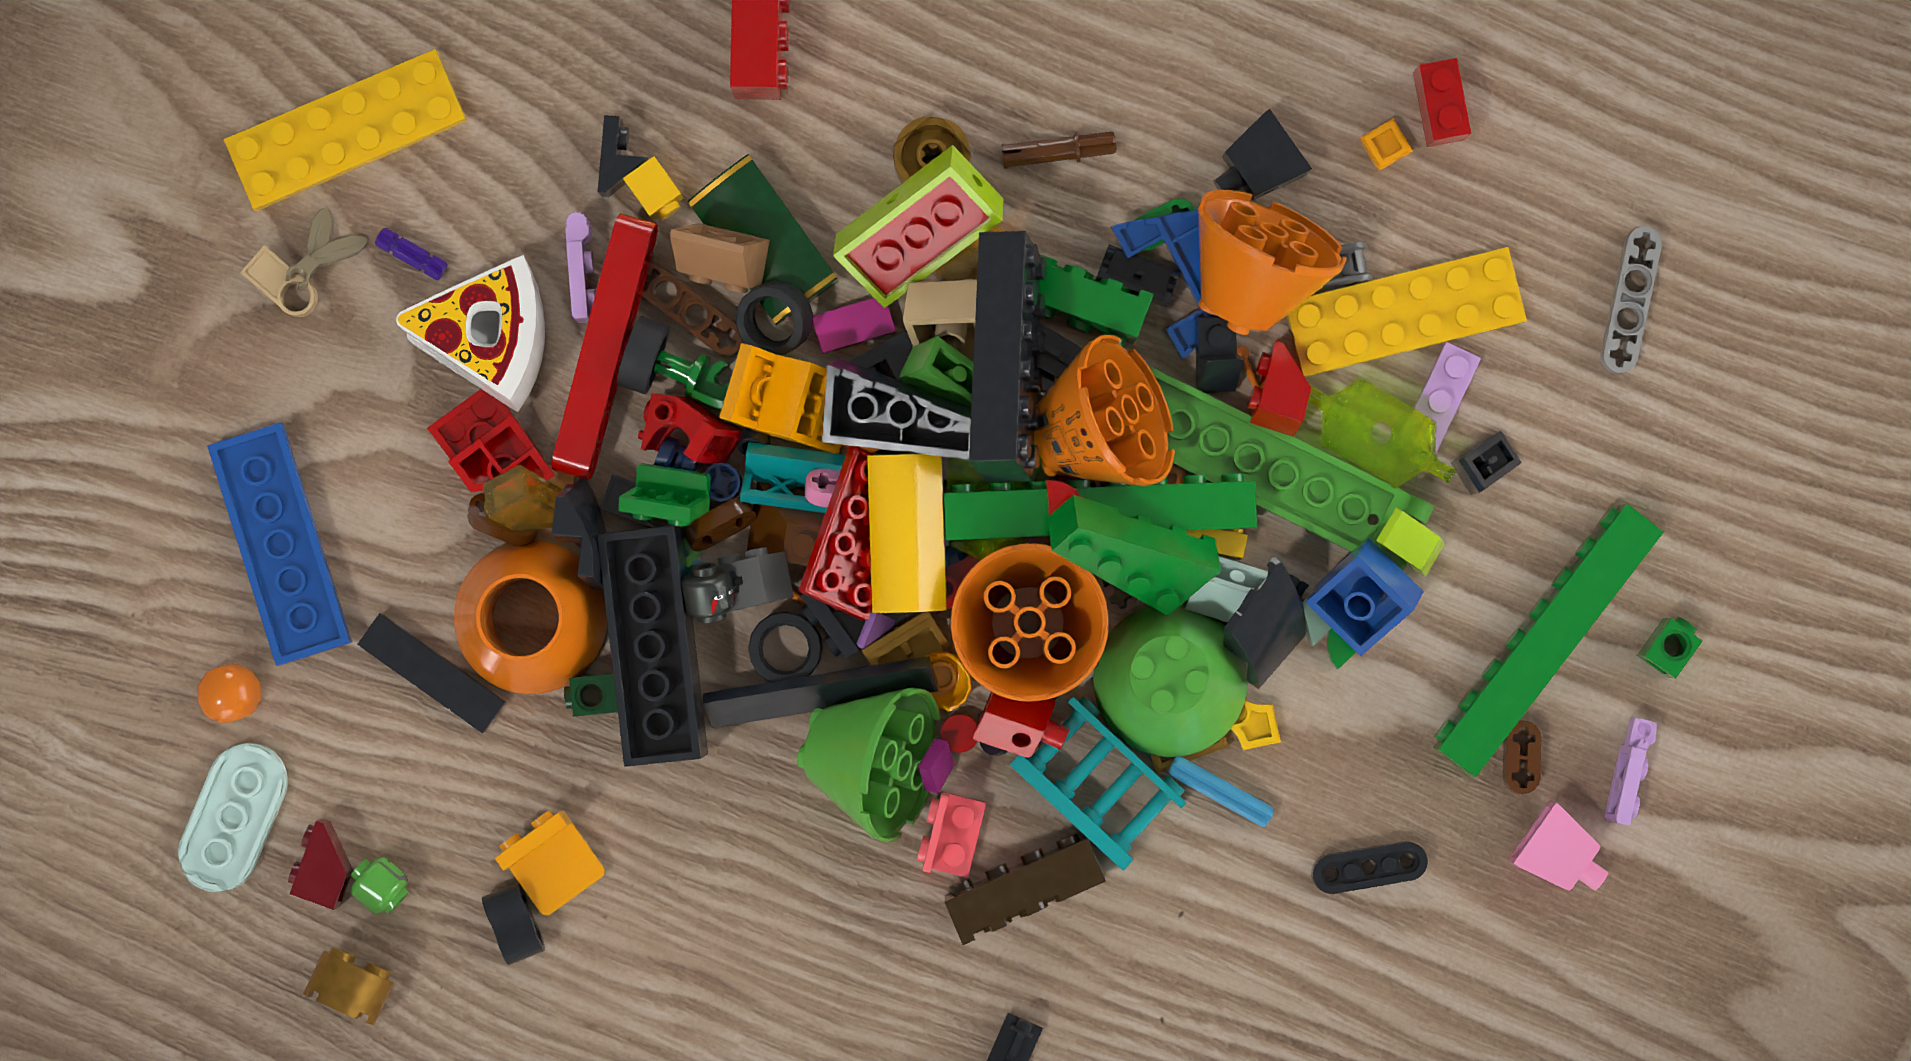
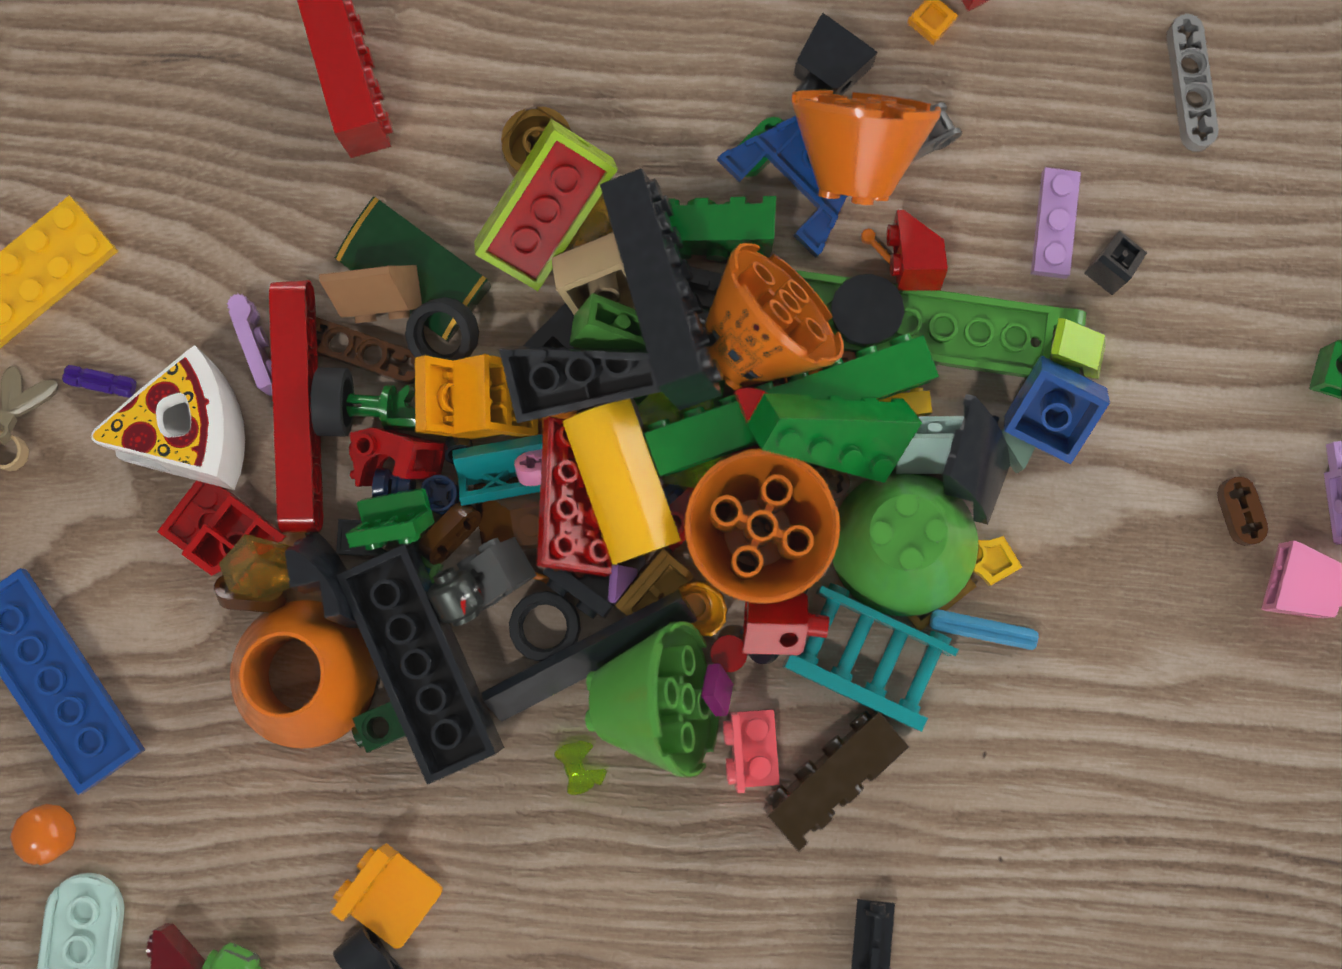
camera: 15 degrees left, 5 degrees down
(431, 673) = (227, 754): black tile -> none
(613, 164) = (259, 246): black slope -> none
(654, 189) = (300, 254): yellow brick -> none
(772, 809) = (579, 779): none -> clear neon green piece
(852, 325) = (515, 318): dark pink tile -> none
(1059, 149) = (648, 110): reddish brown axle -> none
(1139, 274) = (755, 190): black hinge -> none
(1211, 434) = (867, 310): none -> black tile
(1216, 355) = (848, 245): black slope -> none
(1338, 650) = (1045, 466): green tile -> none
(1349, 425) = (1048, 270): clear neon green plate -> none
(1386, 871) = (1157, 655): black plate -> none
(1406, 312) = (1000, 154): yellow plate -> none
(1548, 638) = (1228, 398): green brick -> none

